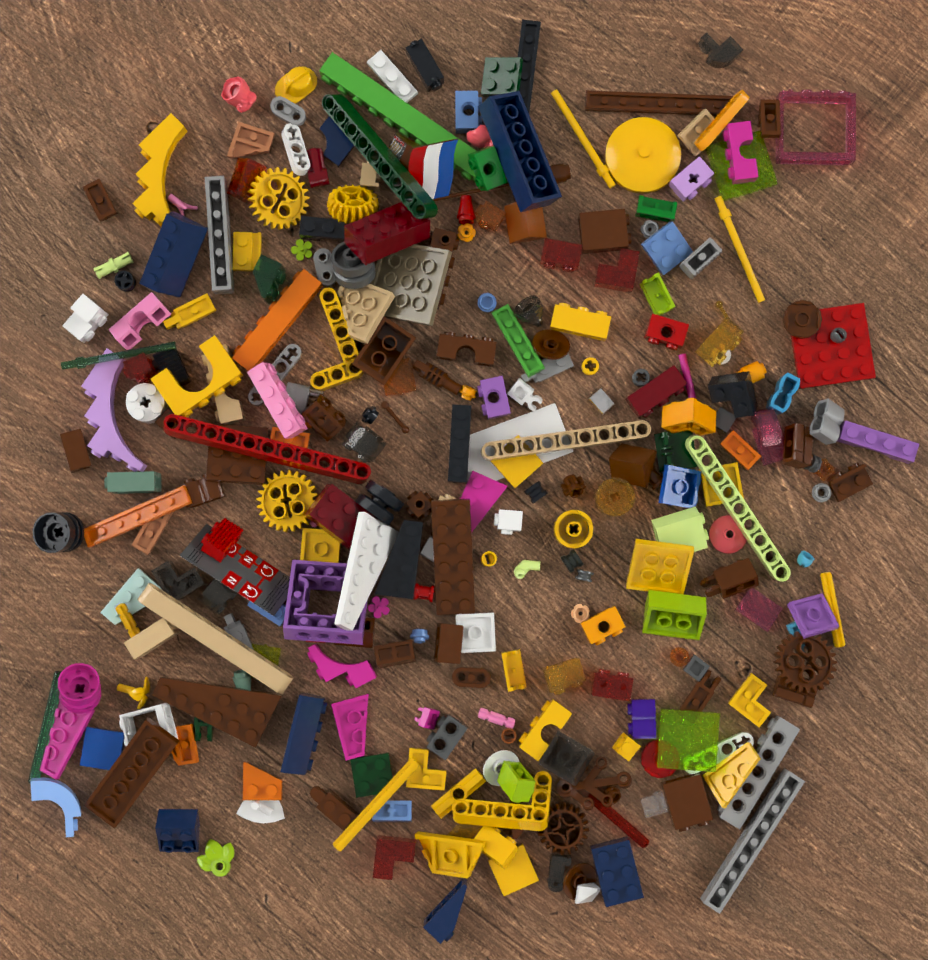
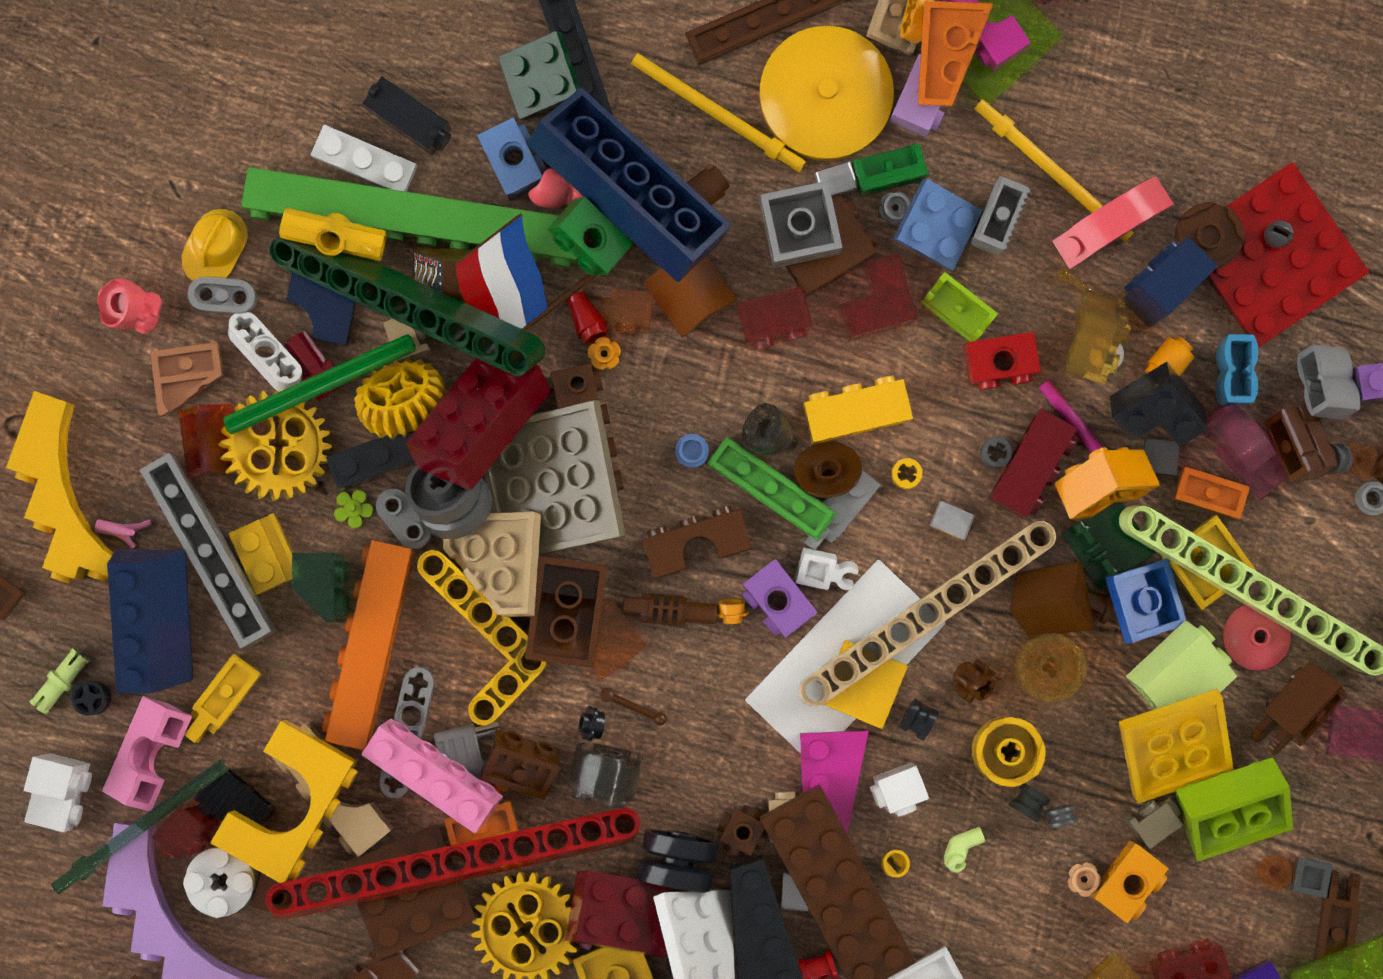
camera: 25 degrees left, 0 degrees up
(315, 177) = (319, 384): none -> green axle
(350, 98) = (314, 230): none -> yellow piece
(459, 444) = (759, 702): black brick -> none
(596, 212) = (800, 224): none -> light grey brick
(626, 201) = (840, 179): none -> flat silver piece
(630, 601) = (1155, 822): none -> dark tan brick
(715, 159) = (947, 48): none -> orange wing
(757, 287) = (1112, 221): none -> coral arch
(770, 330) = (1167, 281): none -> dark blue brick

